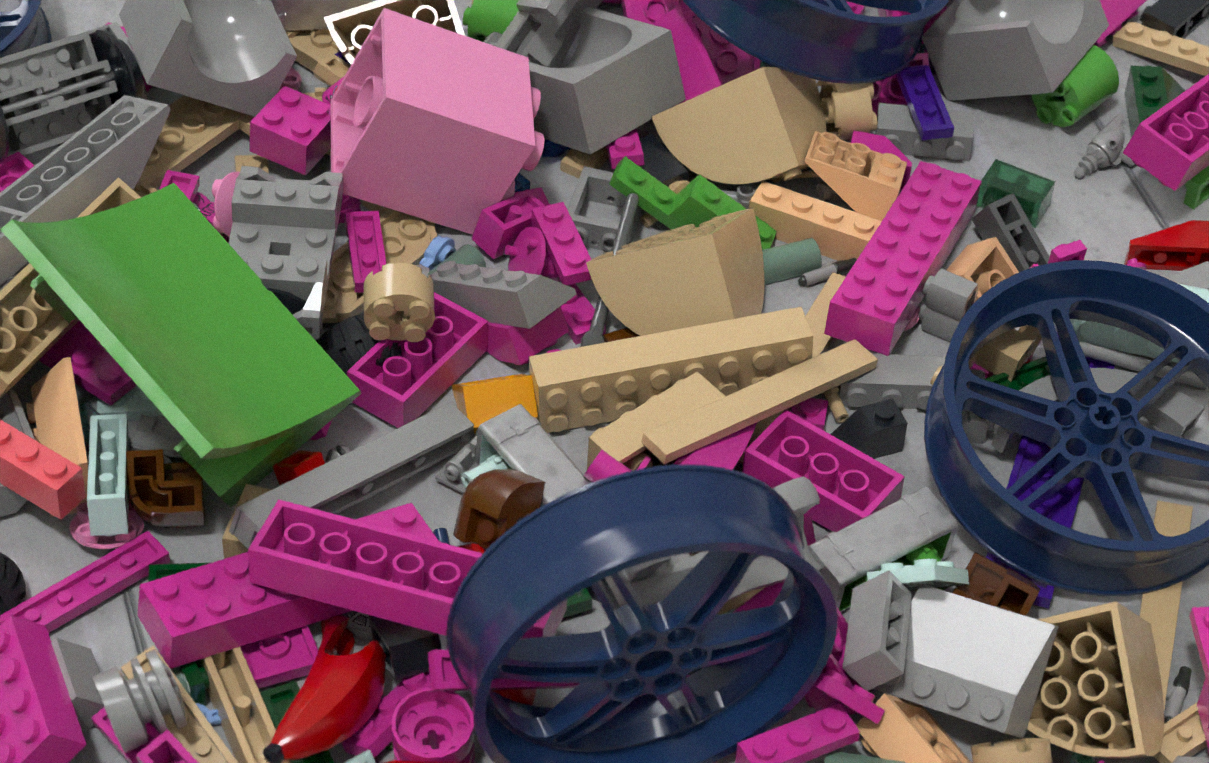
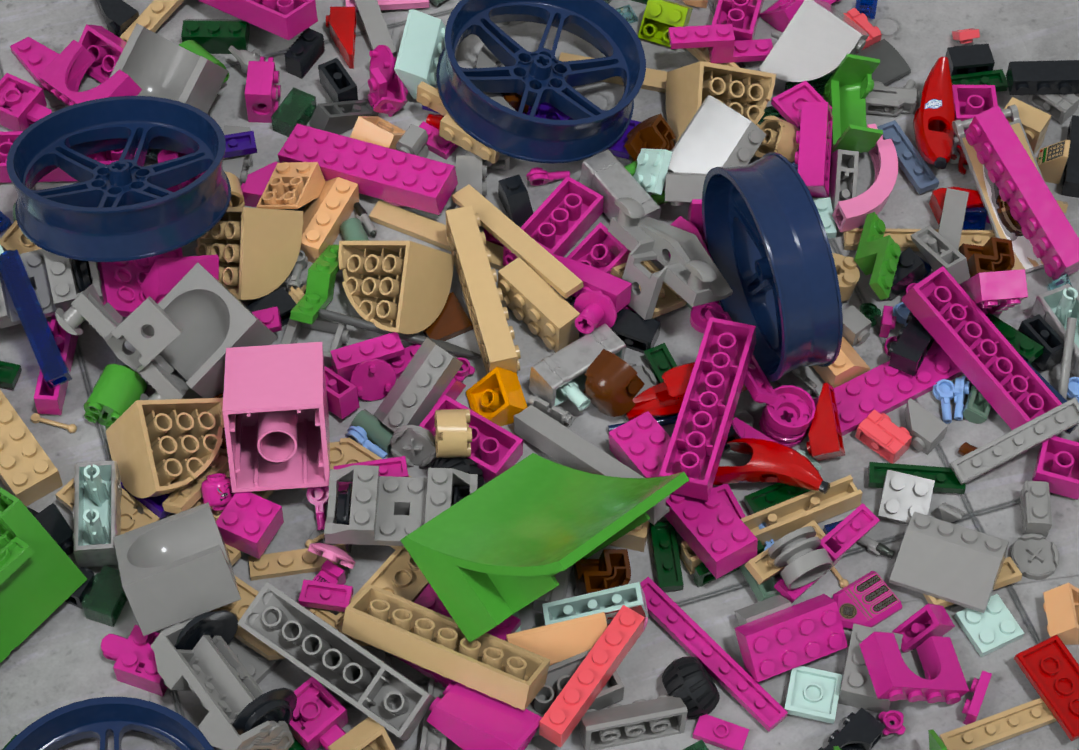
camera: 90 degrees left, 10 degrees up
(922, 470) = (538, 176): none -> dark pink plate
(1051, 146) = (262, 90): none -> dark pink brick
(1081, 222) = (337, 81): none -> black brick
(1133, 201) = (304, 52): none -> black brick

